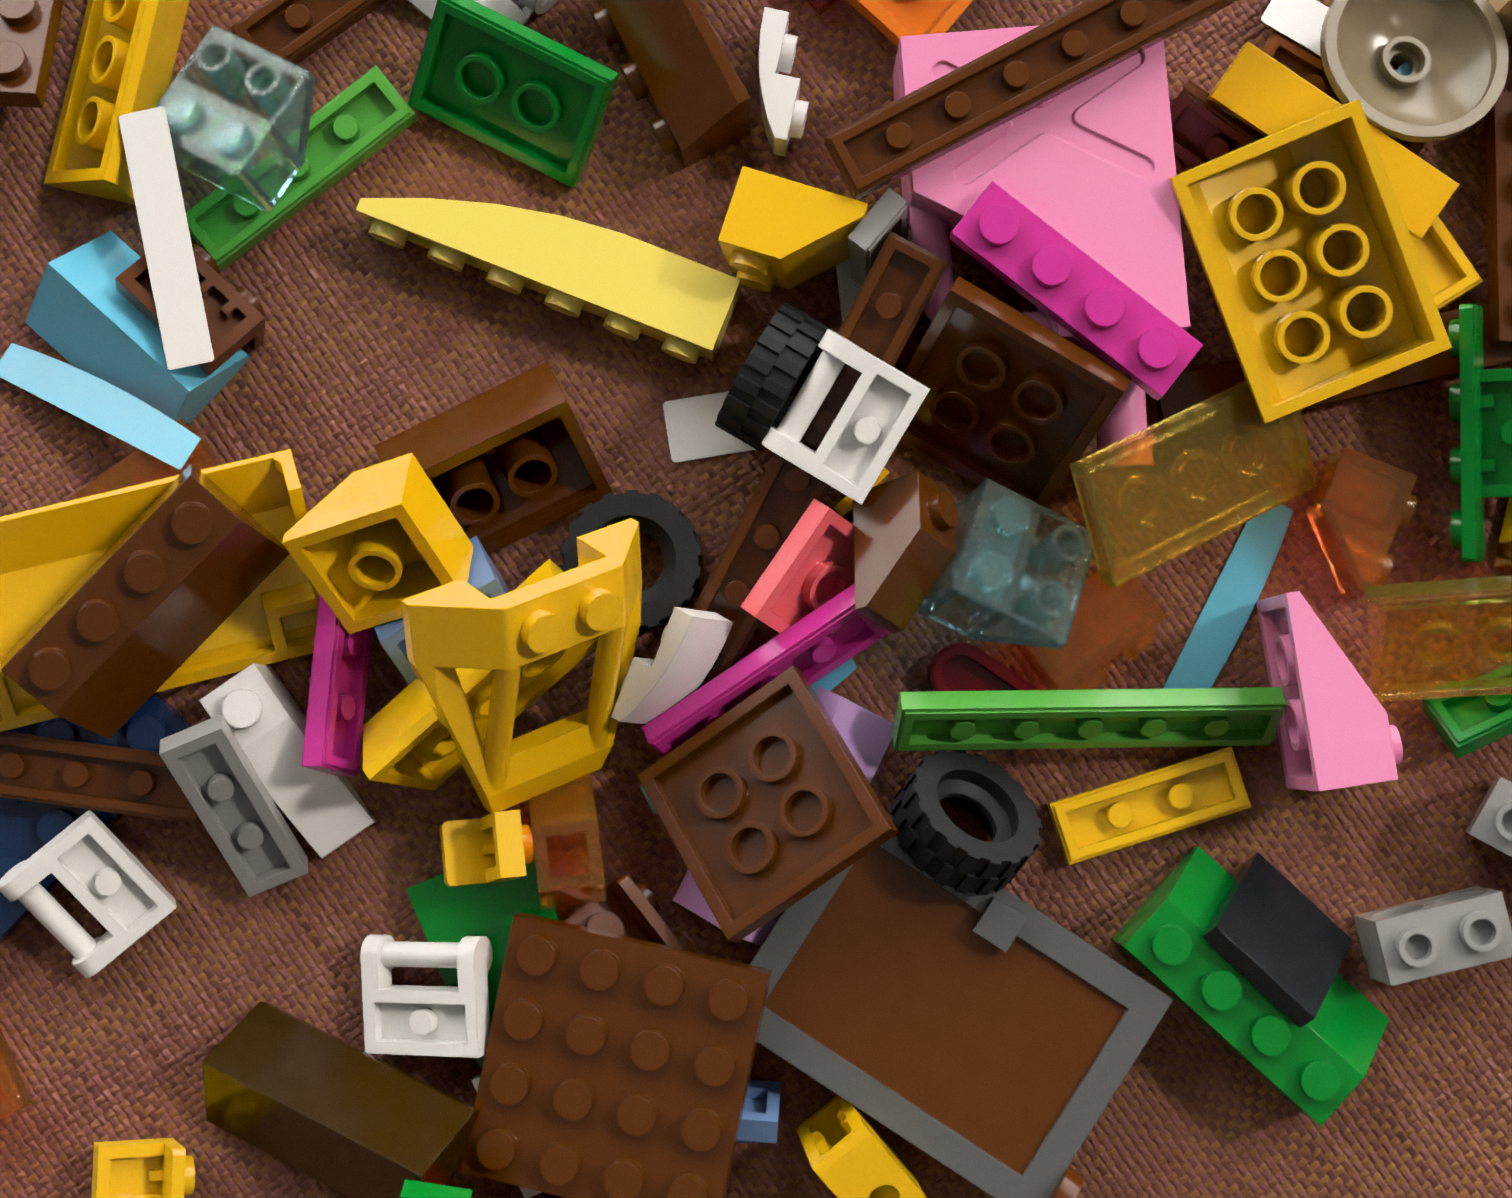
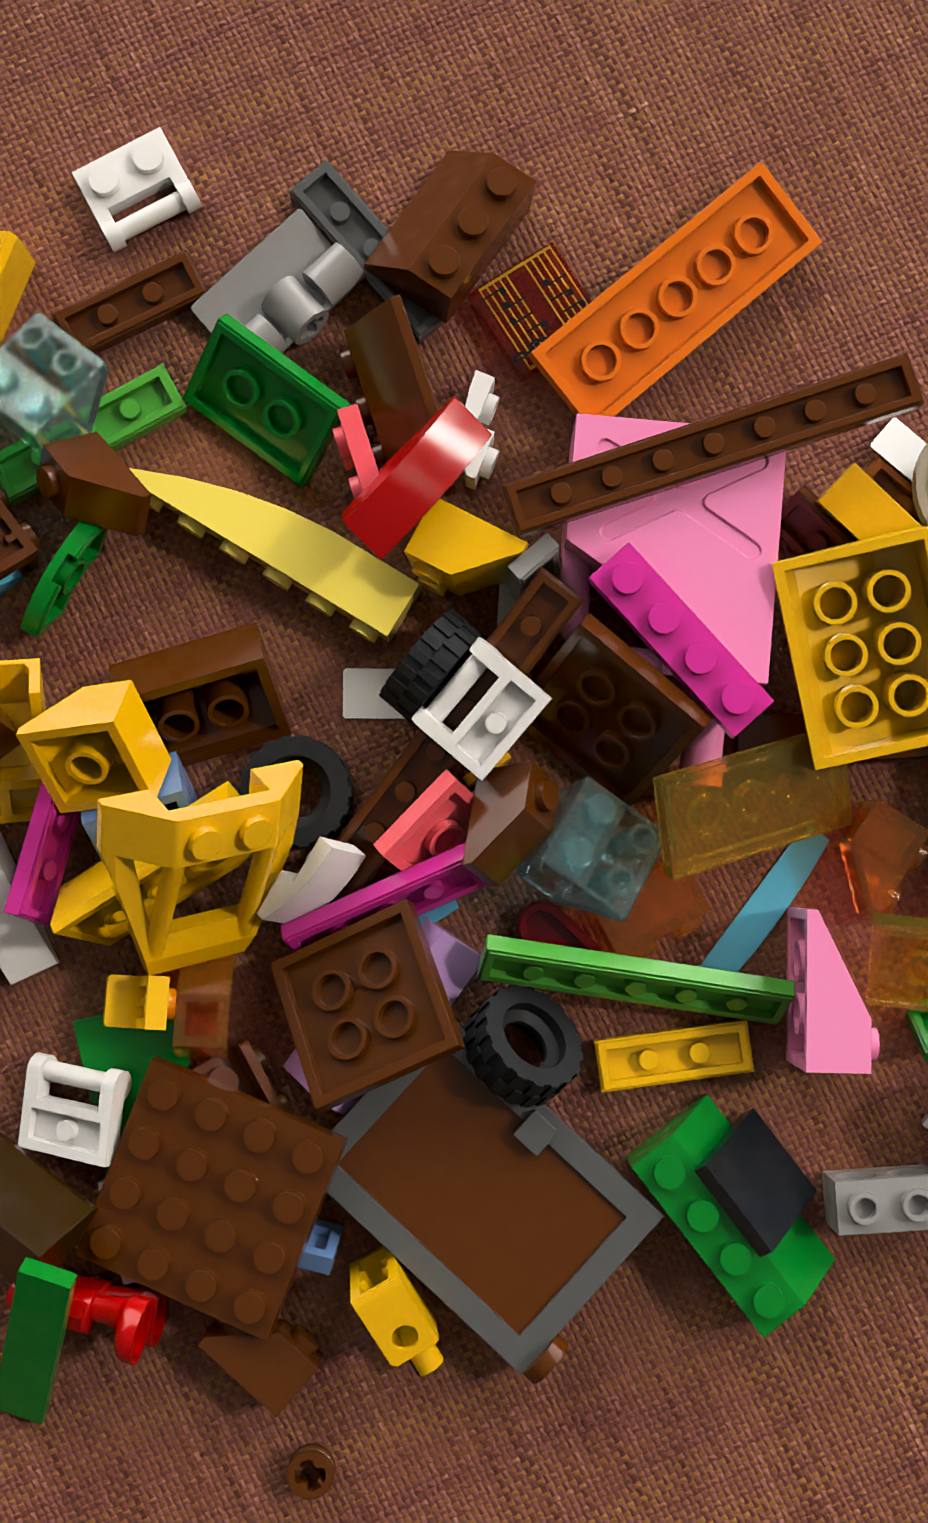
camera: 10 degrees right, 0 degrees up
(302, 339) = (62, 576): none -> green tile
(319, 225) = (93, 484): none -> reddish brown slope
(639, 134) = (355, 449): none -> coral plate
(718, 146) = (416, 477): none -> red slope

